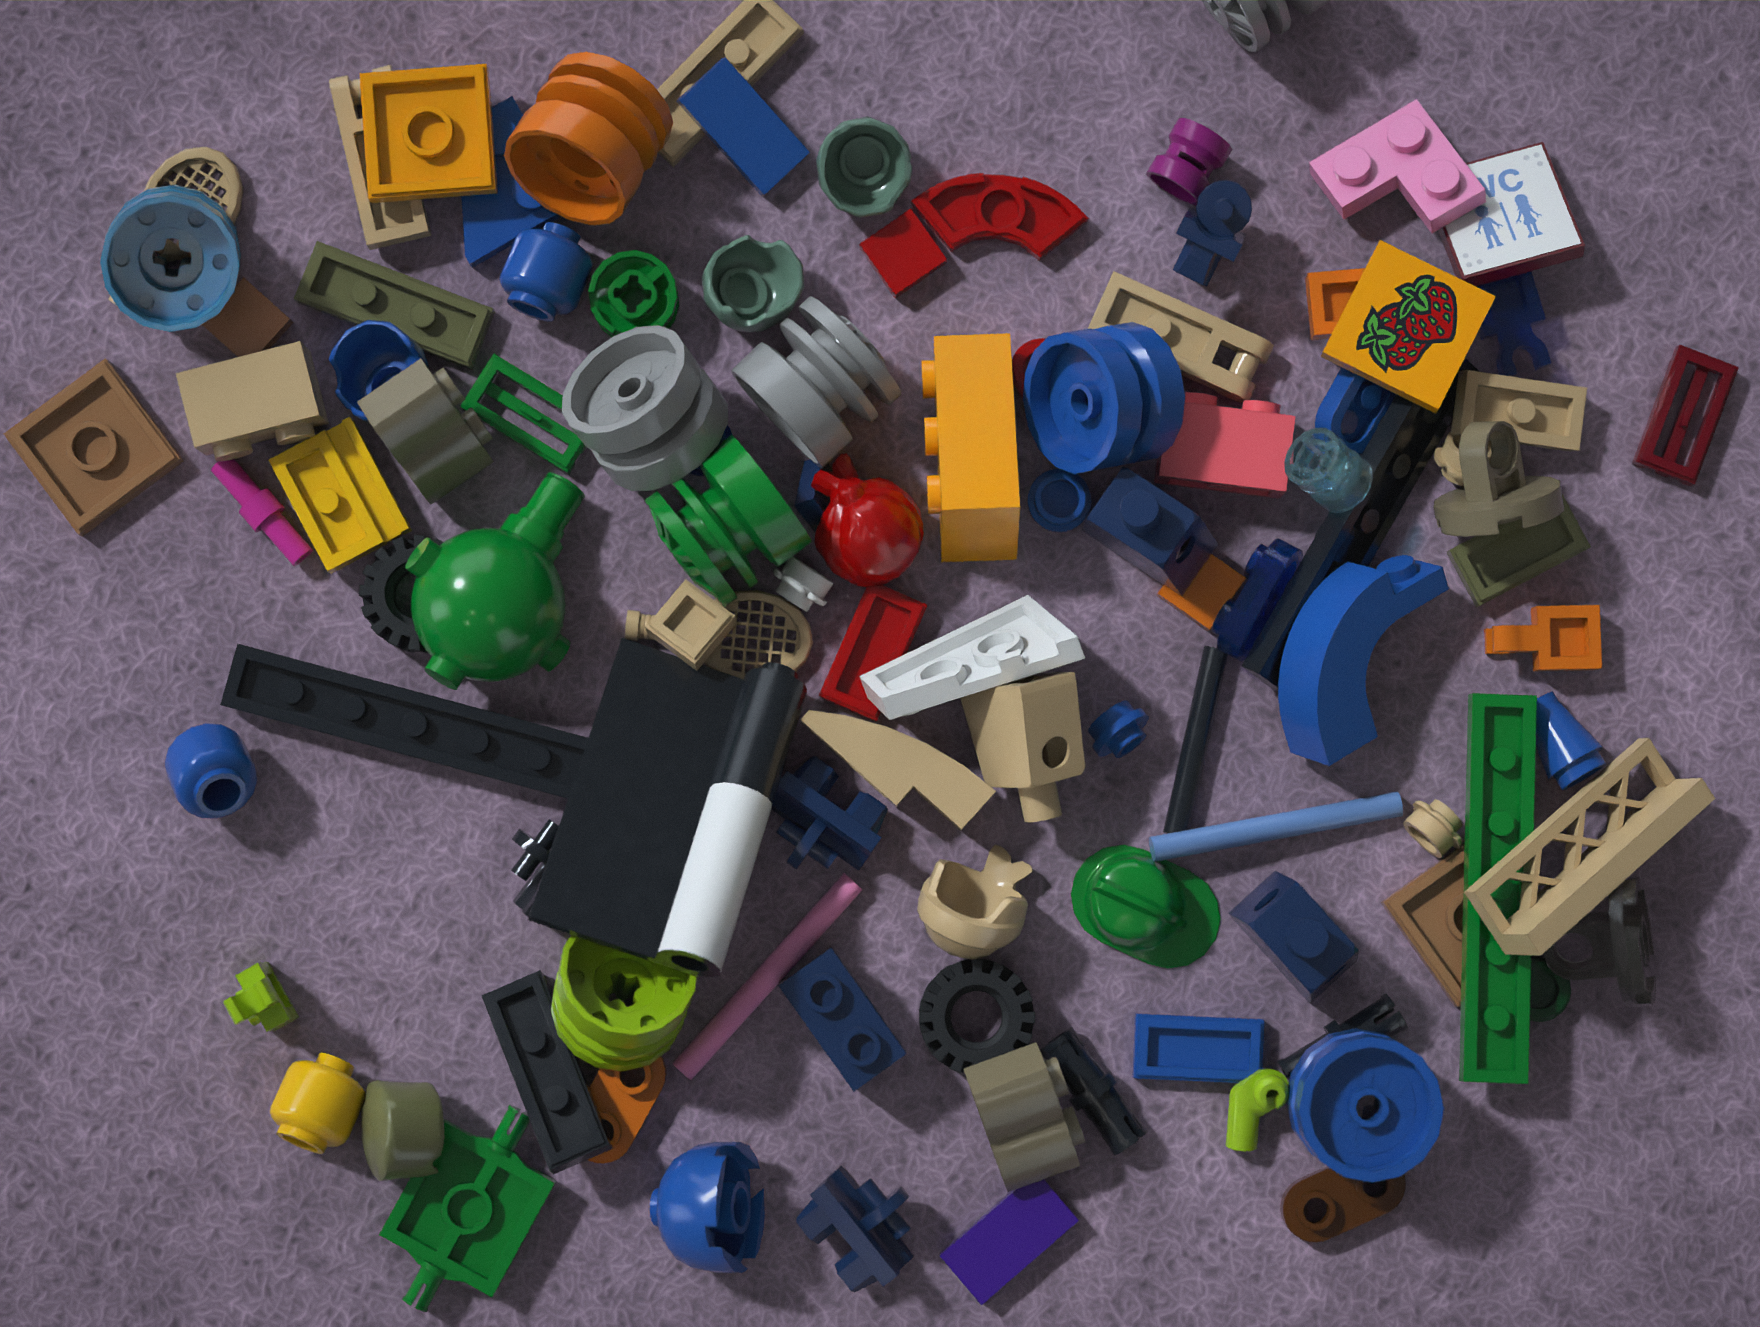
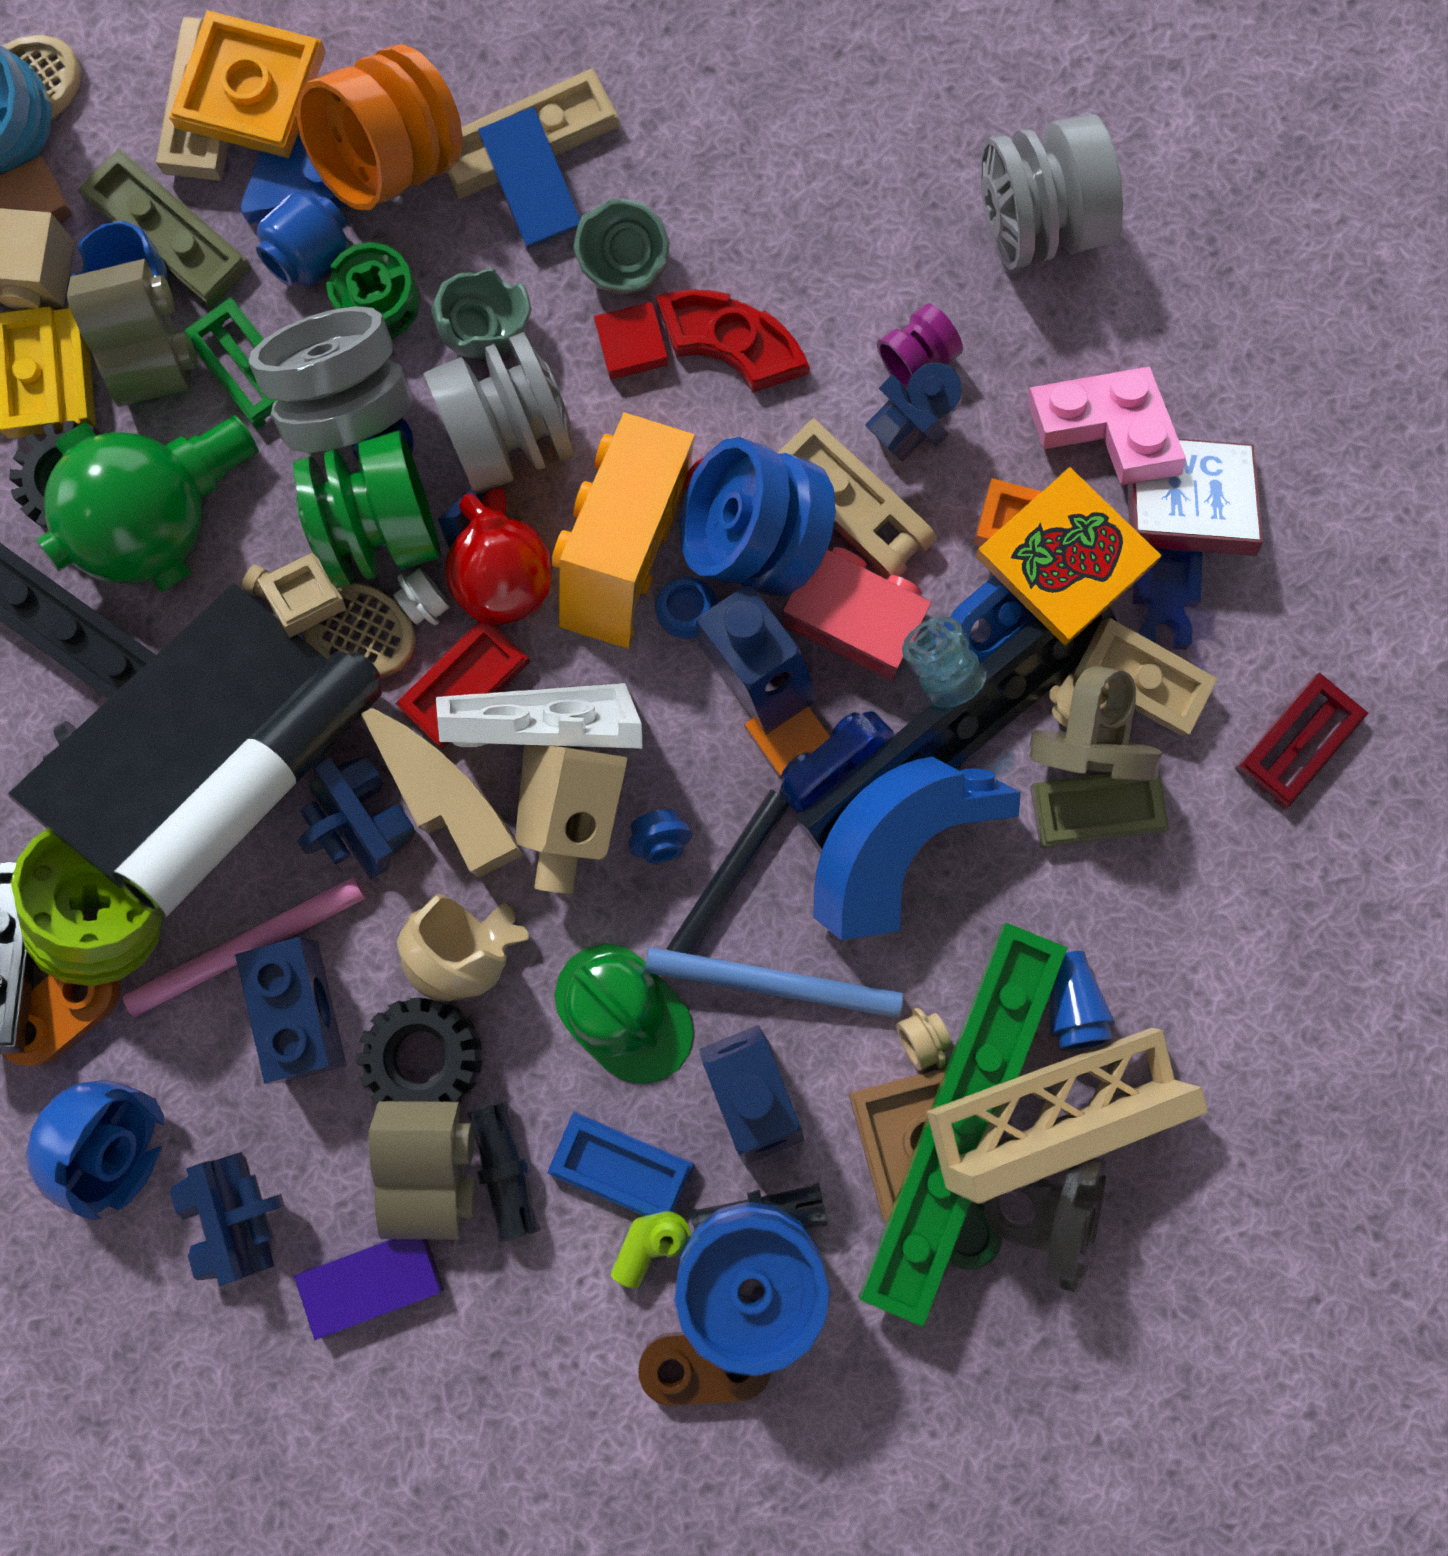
camera: 25 degrees right, 5 degrees down
(1557, 638) = (1107, 902): orange plate -> none

